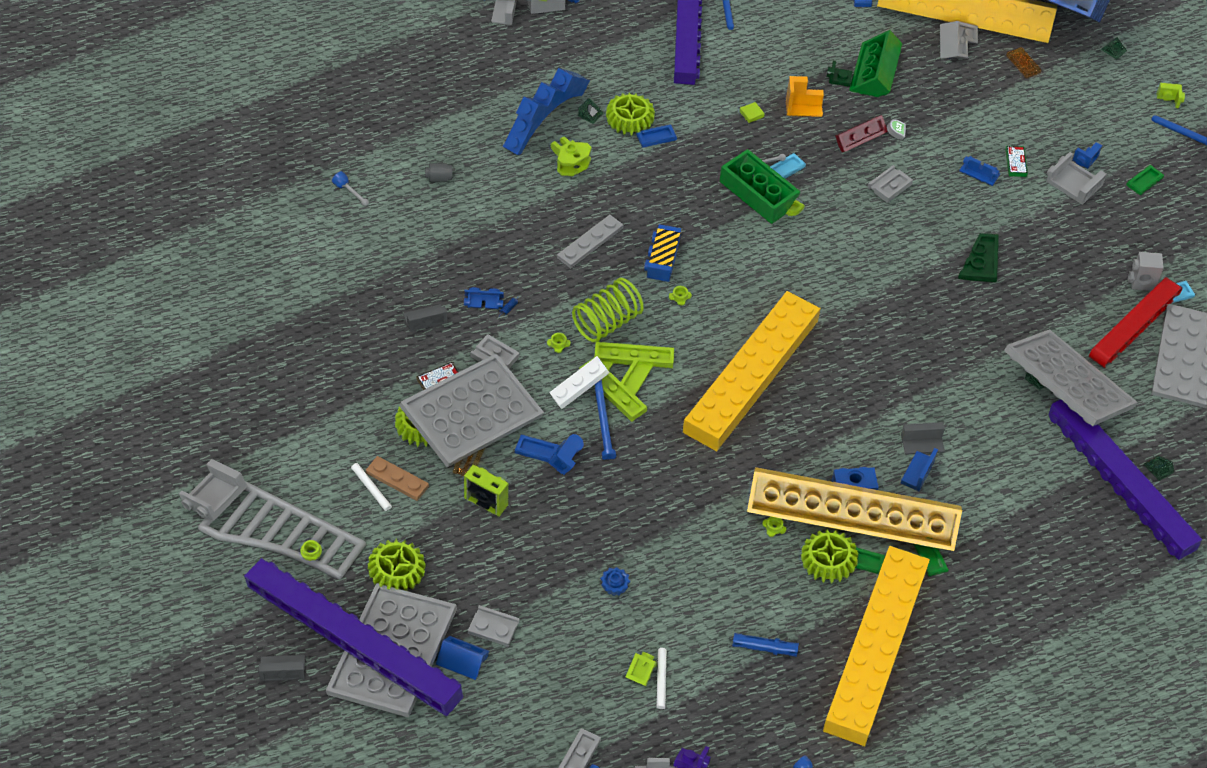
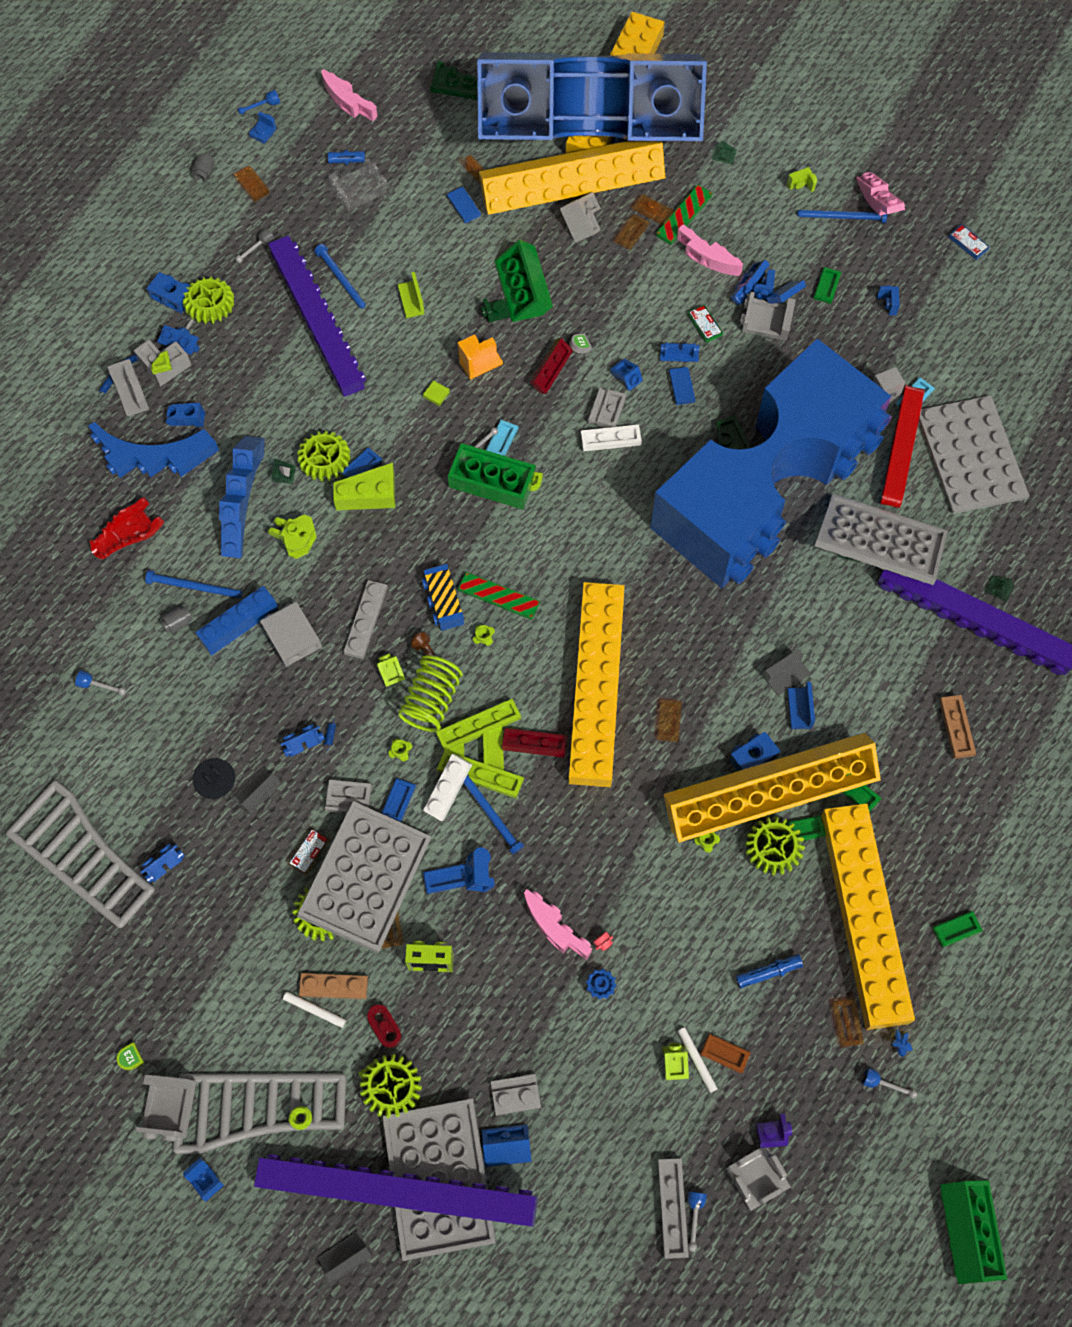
camera: 25 degrees left, 15 degrees up
(207, 447) = (129, 1057): none -> tile
(208, 554) = (203, 1179): none -> blue bracket
(278, 286) = (91, 834): none -> light grey bar
(326, 326) = (154, 867): none -> blue hinge
(397, 294) = (214, 778): none -> black piece
(419, 525) = (385, 1026): none -> dark red plate
(438, 135) = (152, 577): none -> blue bar
(440, 94) = (127, 528): none -> red animal
(486, 193) = (236, 620): none -> blue brick
(512, 63) = (150, 459): none -> blue arch
(523, 222) = (291, 633): none -> light grey panel
(535, 375) = (398, 799): none -> blue tile
(538, 39) = (185, 415): none -> blue leg
(586, 282) = (390, 669): none -> lime bracket
(602, 524) = (548, 918): none -> bright pink slope
(625, 272) = (421, 641): none -> reddish brown plate
(637, 553) = (603, 941): none -> coral plate
(649, 151) = (366, 490): none -> lime wedge
(672, 387) = (534, 742): none -> dark red plate
(688, 685) = (725, 1053): none -> dark orange tile
(711, 274) = (499, 596): none -> green tile
(774, 38) = (411, 297): none -> lime panel
(798, 427) = (669, 720): none -> clear orange tile
(804, 732) = (851, 1042): none -> clear orange tile
(848, 755) = (901, 1043): none -> blue plant
(879, 205) = (611, 438): none -> white plate
(925, 167) = (628, 373): none -> blue bracket
(953, 697) = (957, 929): none -> green tile
(966, 196) = (682, 385): none -> blue tile
(994, 70) = (632, 232): none -> clear orange tile
(1049, 77) = (684, 214): none -> green tile
(1051, 549) = (957, 727): none -> medium nougat plate
(1053, 115) = (712, 257): none -> bright pink slope
(1061, 264) = (725, 499): none -> blue brick
(1071, 147) = (748, 281): none -> blue hinge
(1103, 166) = (786, 292): none -> blue tile
(1196, 210) = (891, 297): none -> blue bracket

